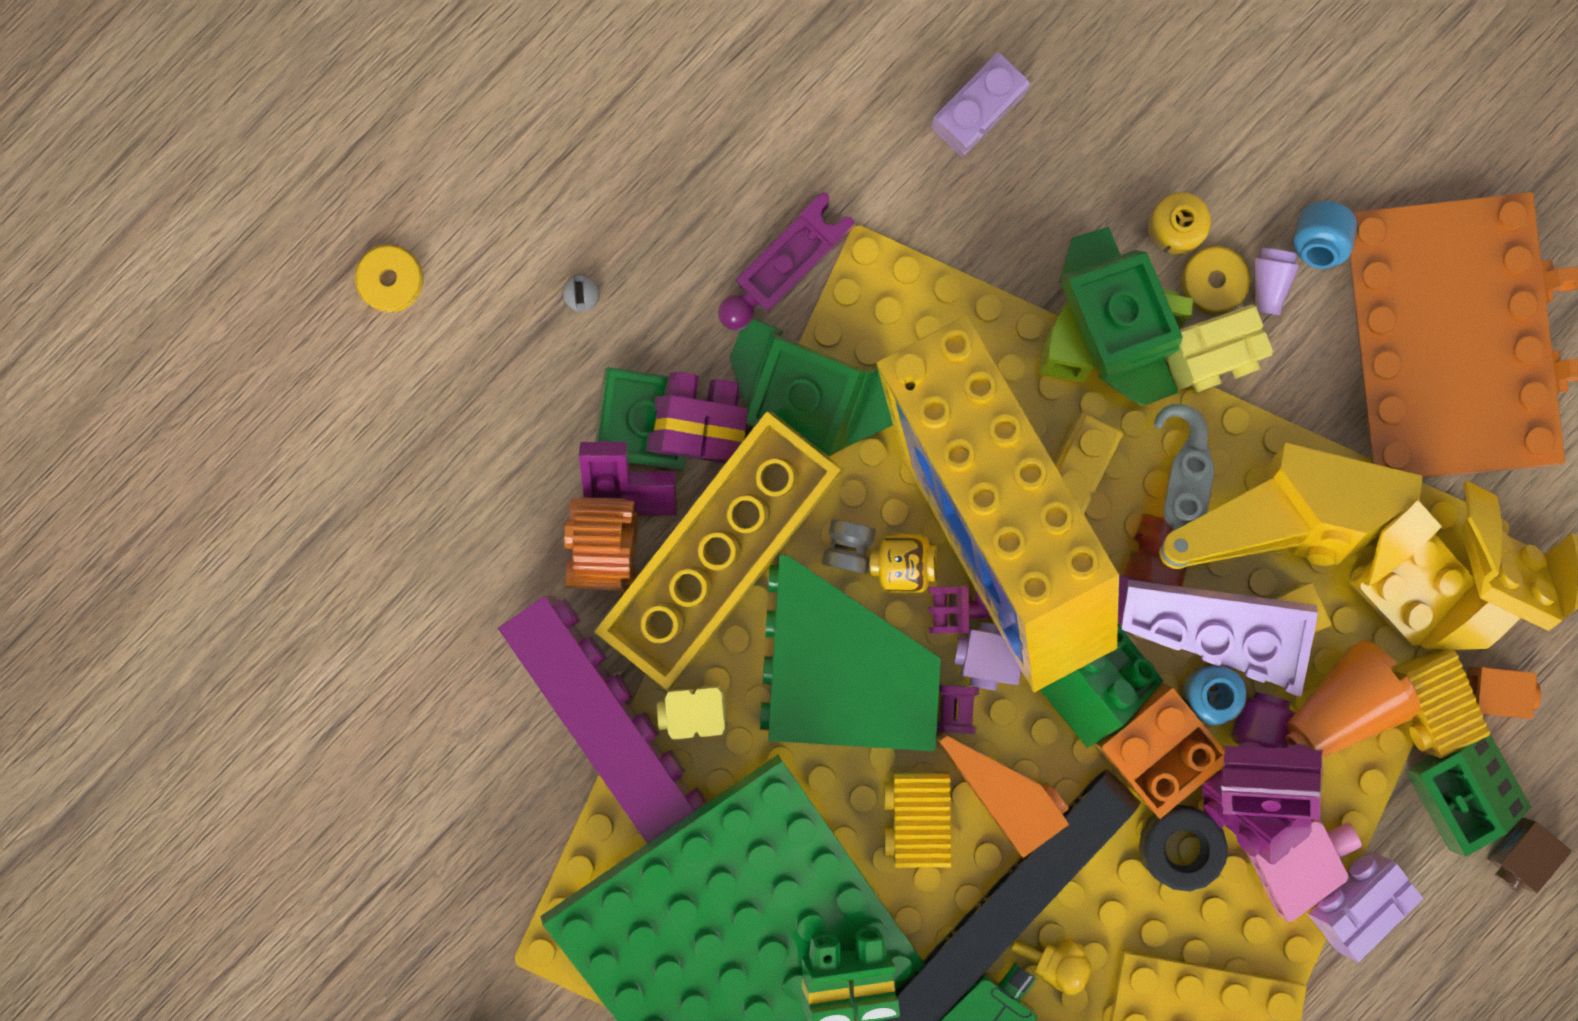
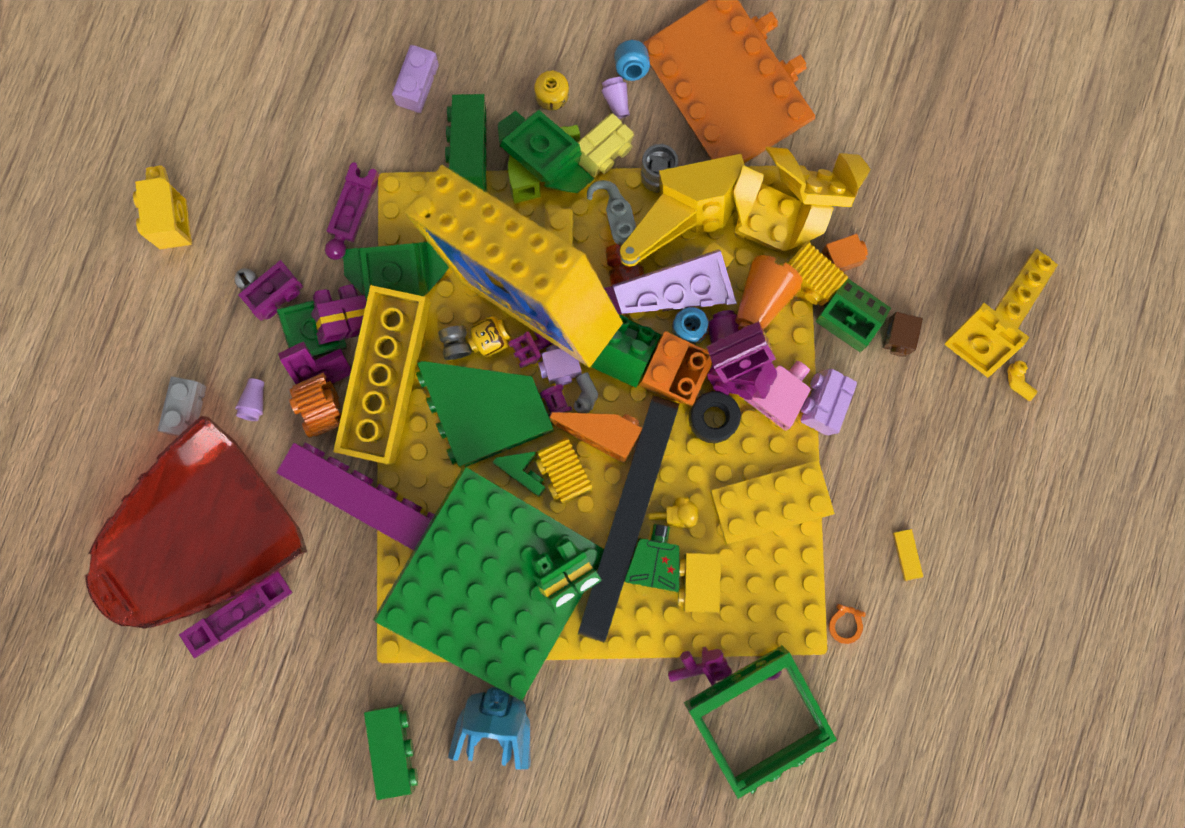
camera: 30 degrees left, 5 degrees down
(329, 648) = (190, 534): none -> clear red windscreen
(341, 793) = (235, 615): none -> magenta slope
(370, 272) = (127, 313): yellow piece -> none
(399, 448) = (181, 405): none -> light grey brick
(504, 131) = (161, 211): none -> yellow hinge
(505, 485) = (251, 401): none -> lavender cone
(610, 331) = (271, 291): none -> magenta bracket
(693, 711) = (409, 469): light yellow brick -> none
(852, 777) = (516, 465): none -> green slope
(1009, 721) = (588, 394): none -> light grey arm
(1012, 252) = (467, 138): none -> green wedge
(1229, 266) = (582, 102): yellow piece -> none
(1288, 420) = (655, 159): none -> flat silver wheel

